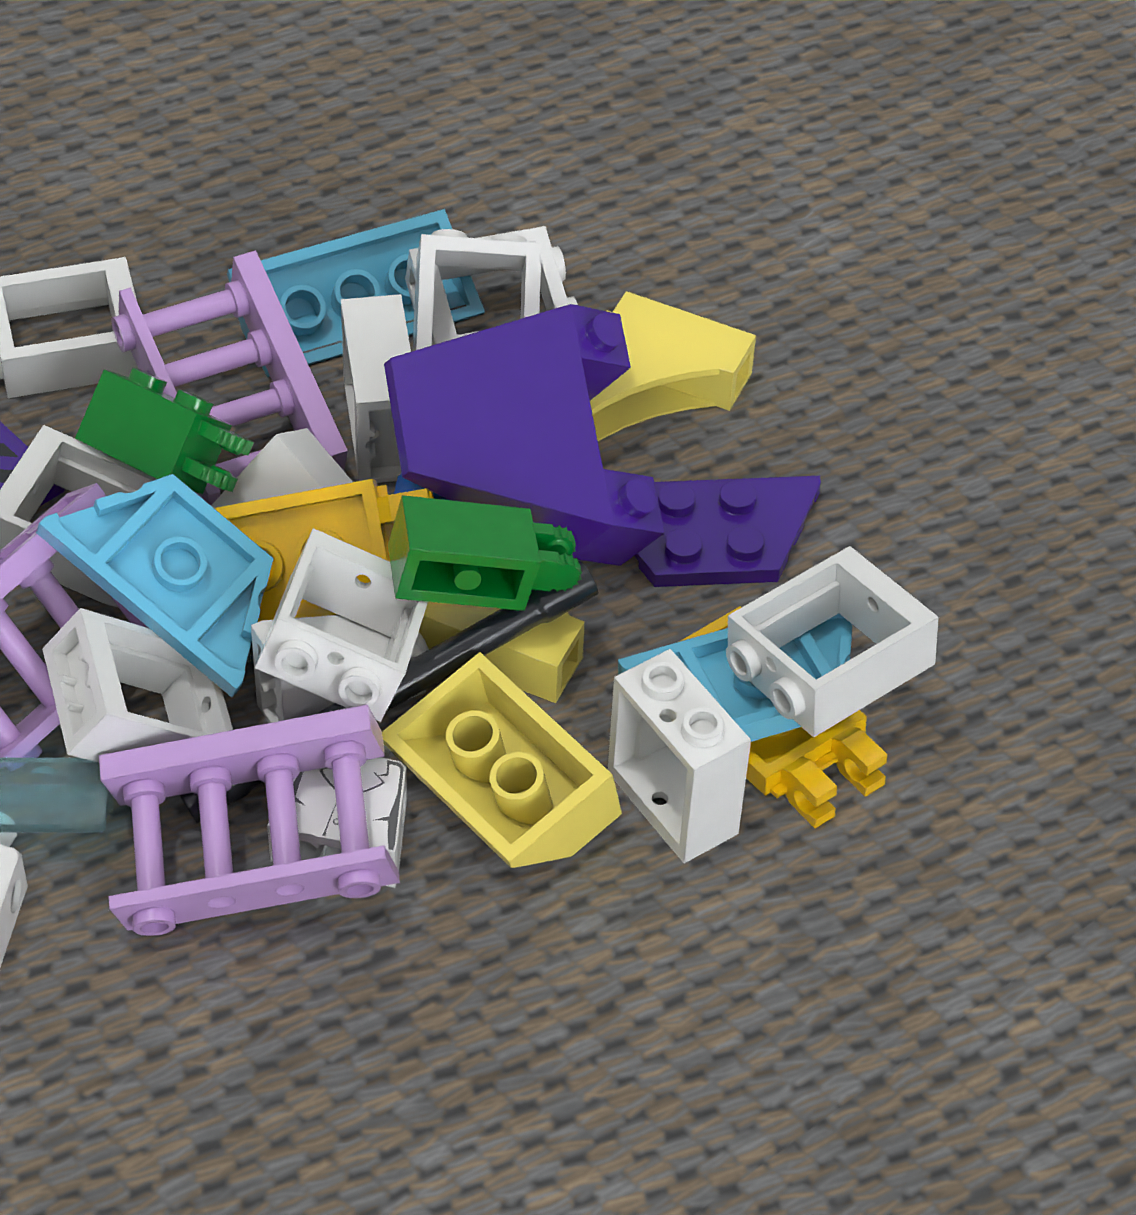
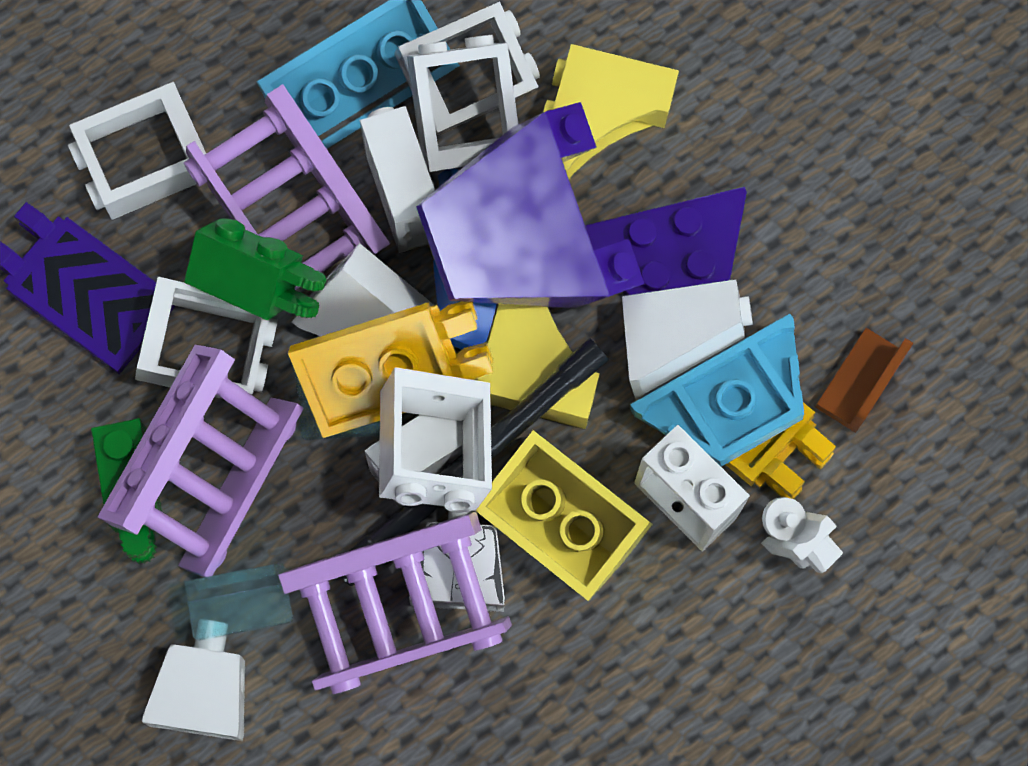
camera: 10 degrees left, 25 degrees up
(85, 675) = (259, 526): white window -> none
(173, 569) = (295, 409): medium azure wing -> none
(477, 554) = (518, 363): green hinge -> none
(694, 588) = (680, 329): none -> white slope
(818, 848) = (799, 534): none -> white hips
(865, 597) = (818, 342): white window -> none
(941, 700) = (862, 379): none -> dark orange panel

